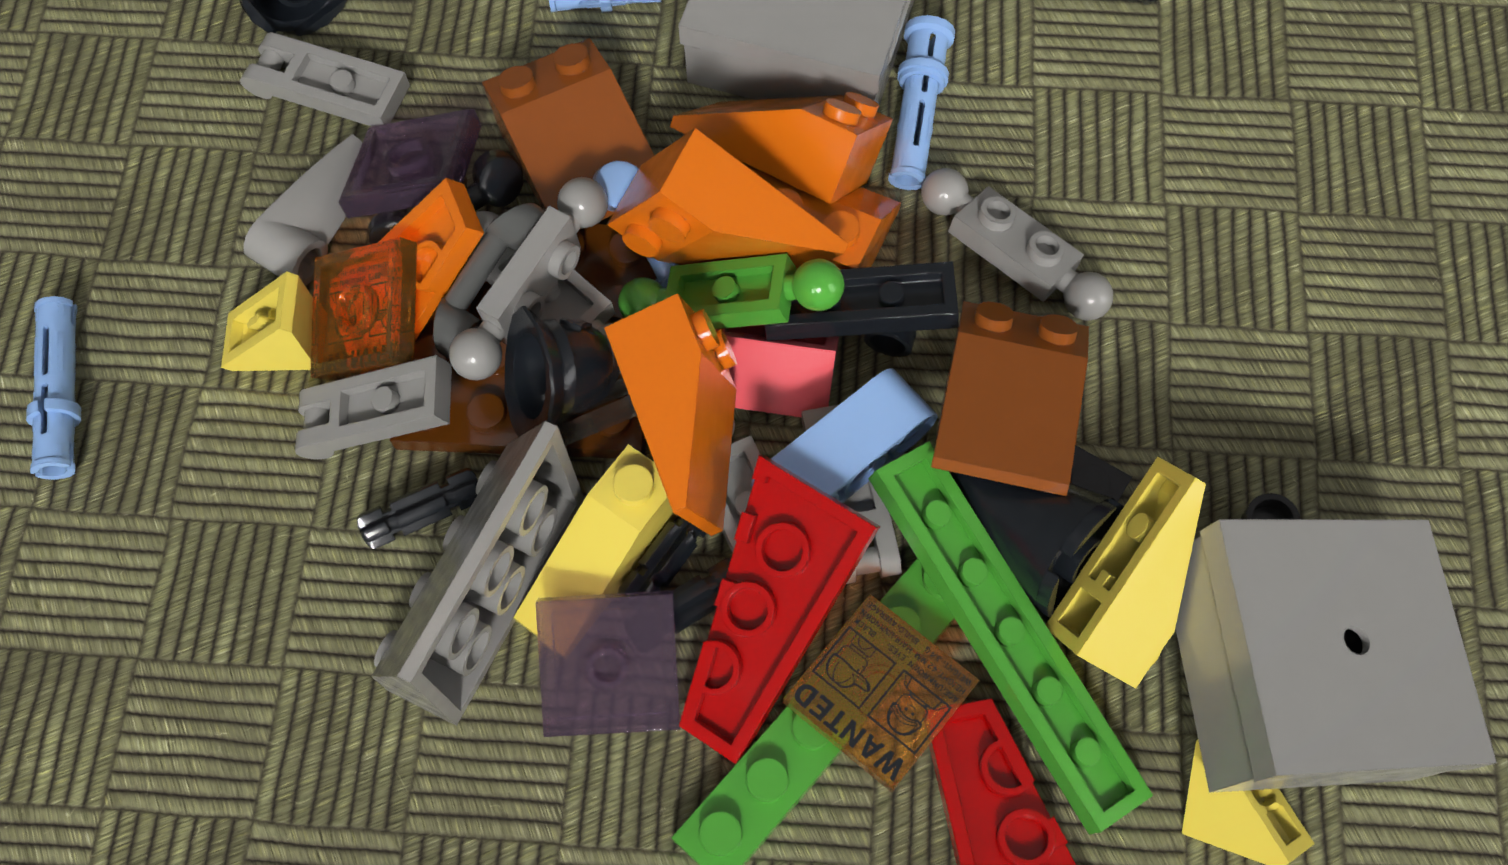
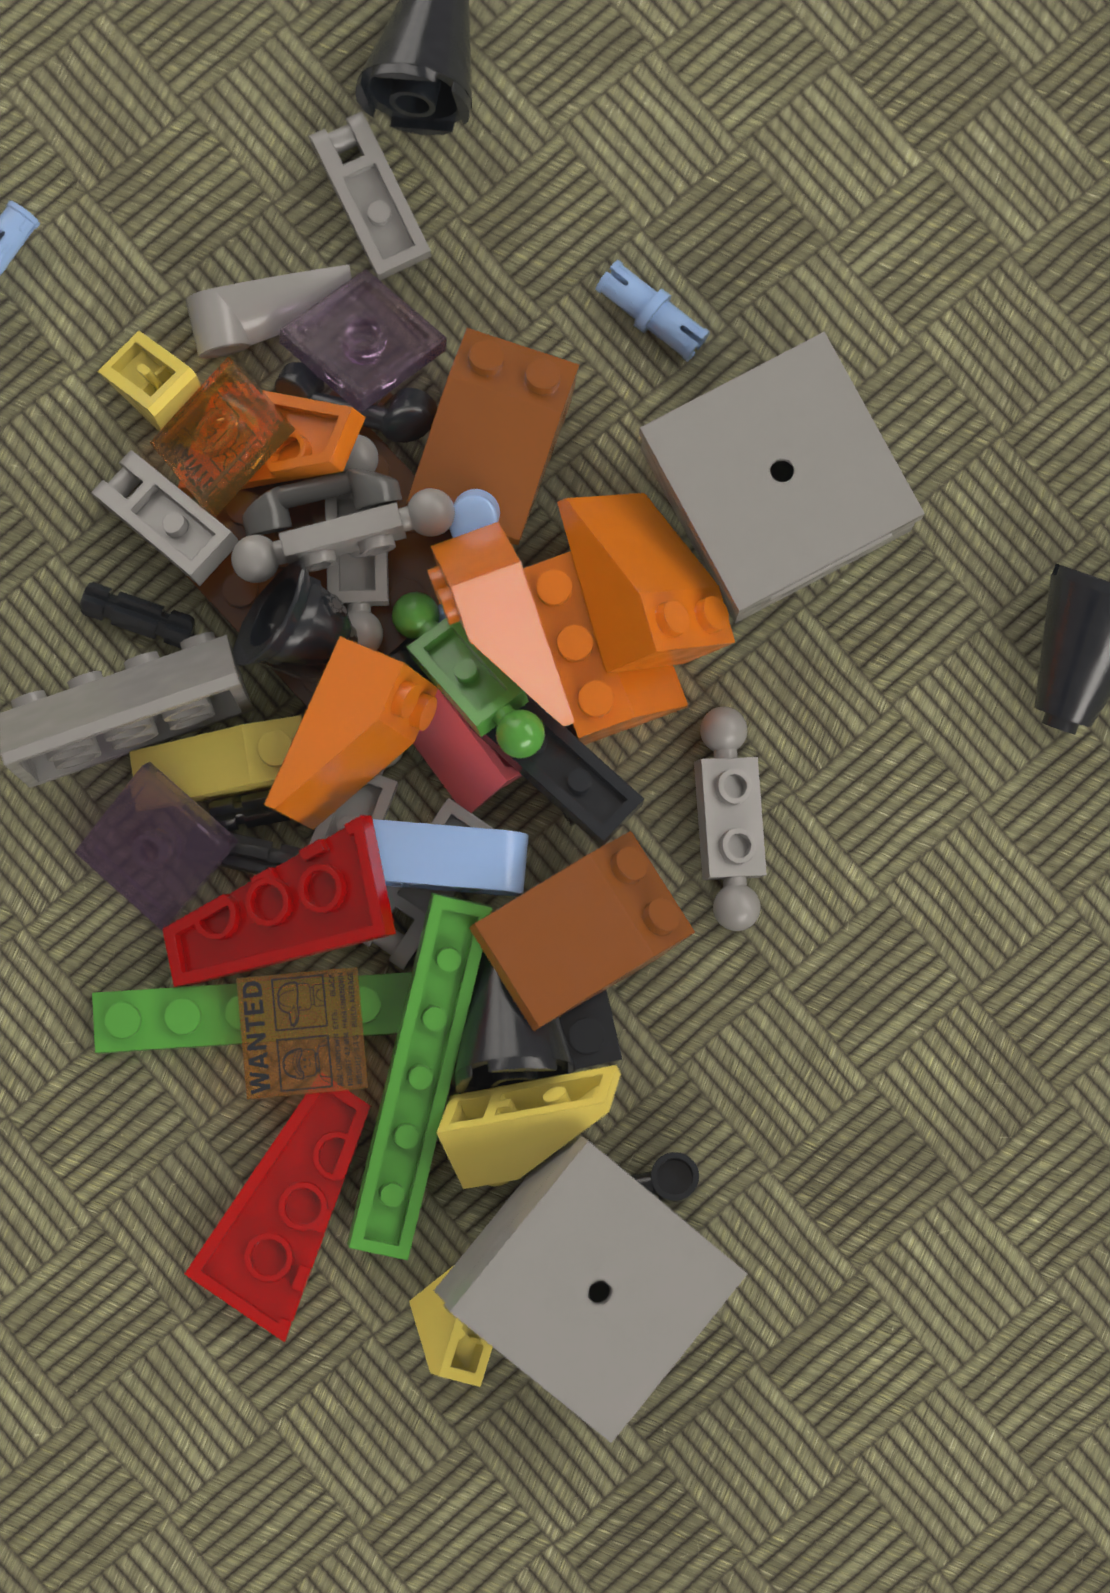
camera: 40 degrees right, 15 degrees up
(921, 78) = (722, 684): light blue pin -> none

